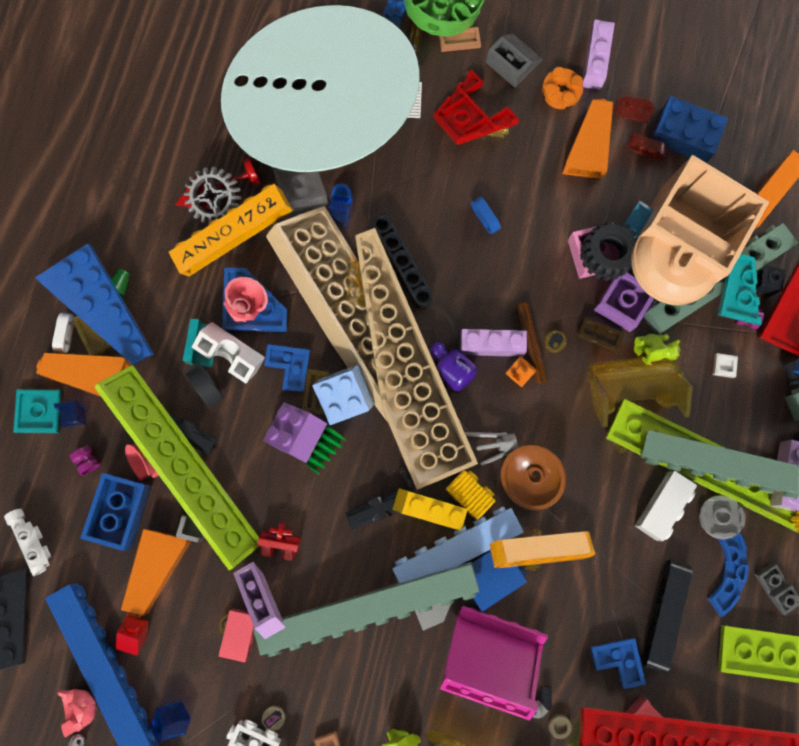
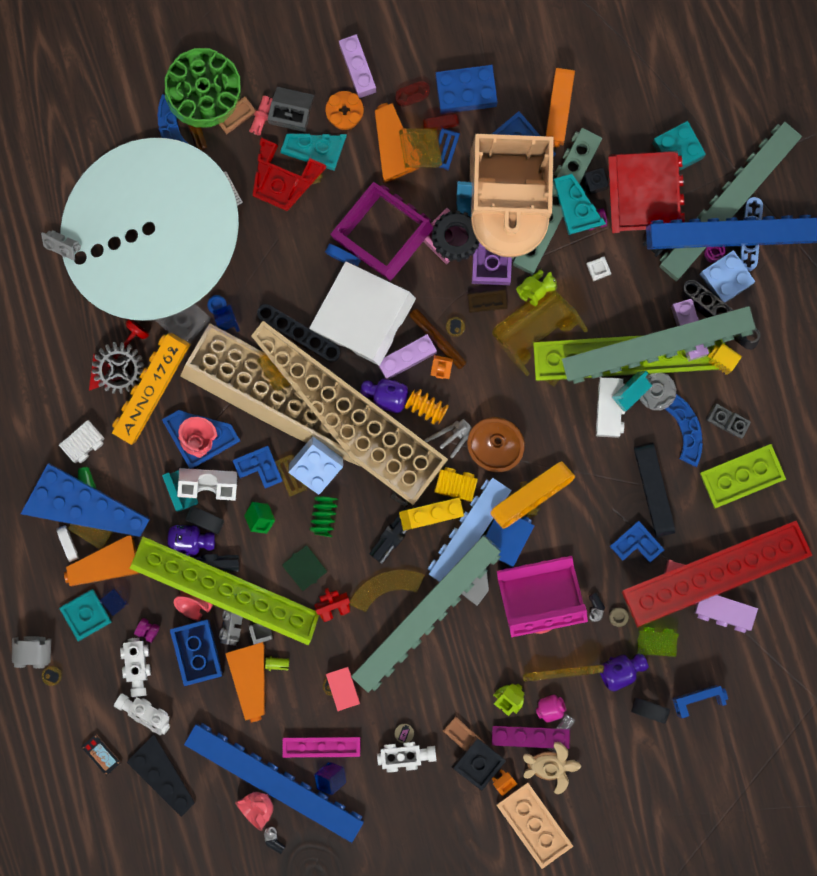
camera: 25 degrees left, 5 degrees up
(55, 486) = (138, 661): none -> white brick
(132, 635) = (264, 734): red brick -> none
(137, 246) = (82, 442): none -> white brick
(162, 510) = (228, 633): none -> light grey hinge
(178, 396) = (188, 539): none -> dark purple piece
(181, 682) = (321, 747): none -> dark pink plate
(189, 569) = (277, 663): none -> lime pin
(230, 58) = (54, 242): none -> light grey hinge
(259, 600) = (343, 653): lavender brick -> none
(260, 414) = (259, 517): none -> green panel
(274, 489) = (304, 568): none -> clear green piece
(295, 432) = (295, 515): medium lavender brick -> none
(345, 551) = (384, 583): none -> clear yellow tile
(475, 275) = (362, 313): none -> white tile
(481, 51) = (261, 115): none -> coral pin
(484, 400) = (426, 406): none -> light orange piece
(525, 182) = (357, 213): none -> magenta window
(527, 110) = (320, 148): none -> teal wing
(617, 156) = (420, 147): none -> clear yellow plate
(625, 185) = (450, 133): none -> blue tile
(701, 502) = (632, 390): none -> teal panel

